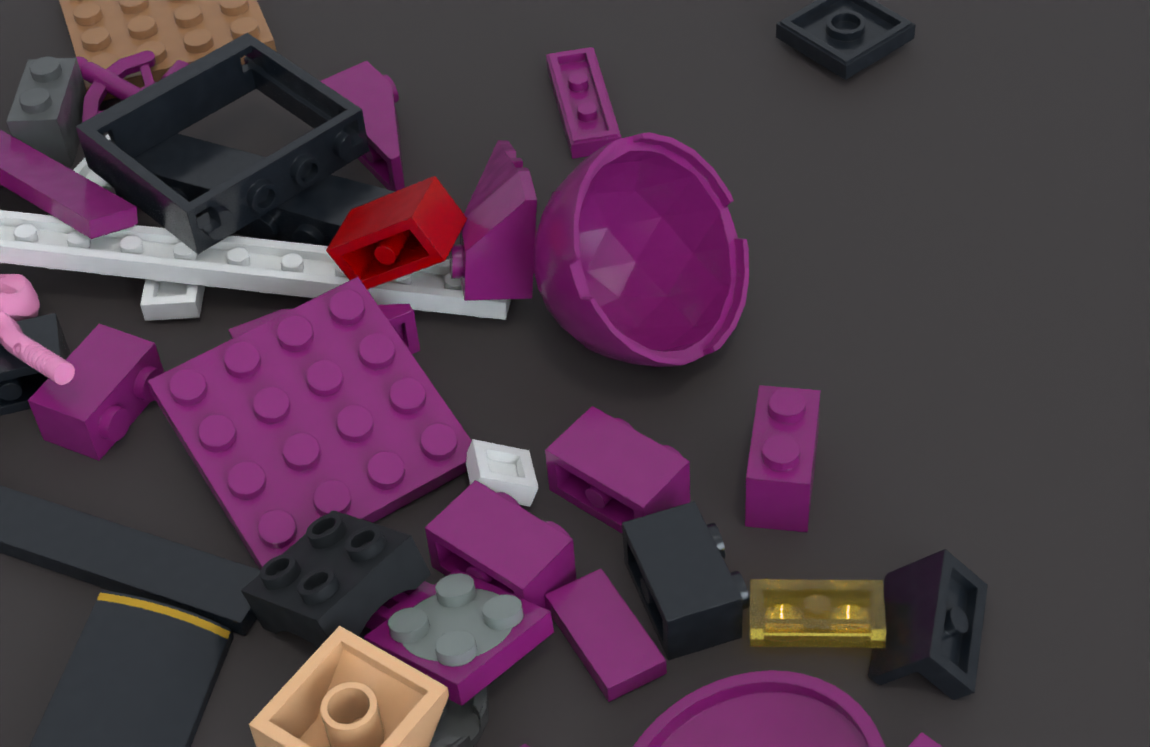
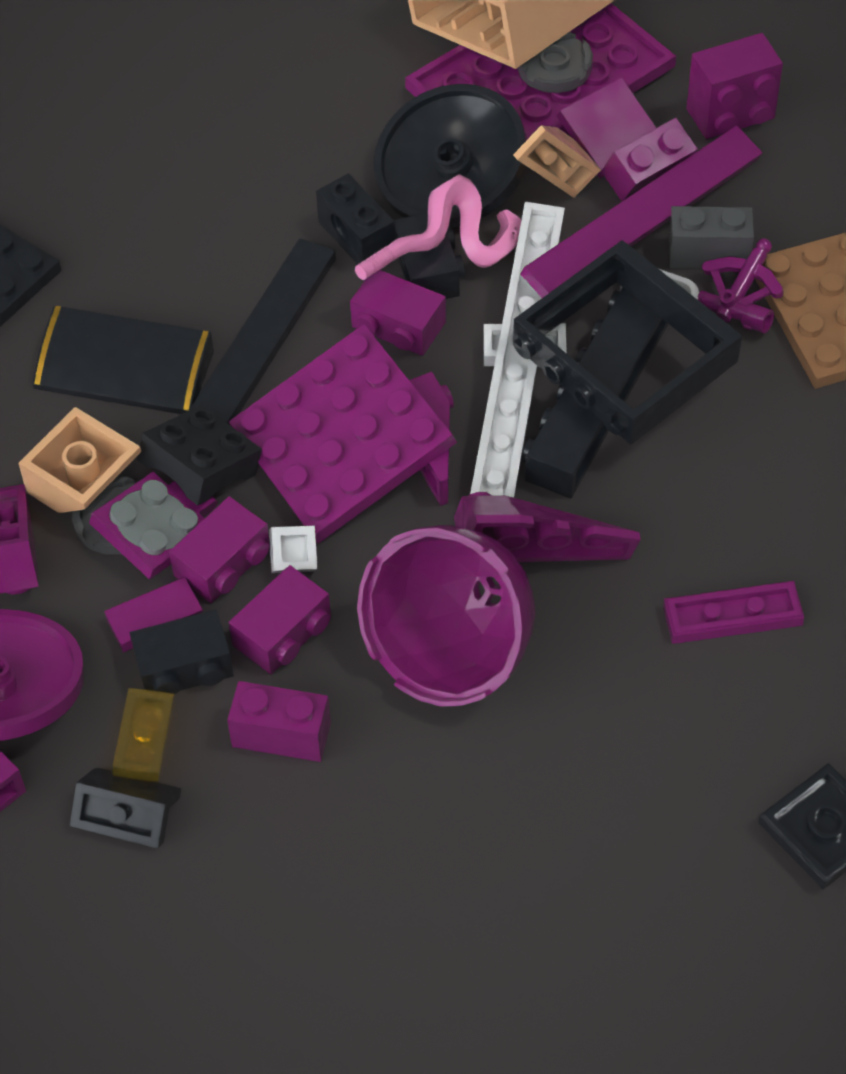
camera: 90 degrees right, 10 degrees up
(377, 99) = (690, 453): magenta slope -> none
(397, 233) = (492, 455): red brick -> none

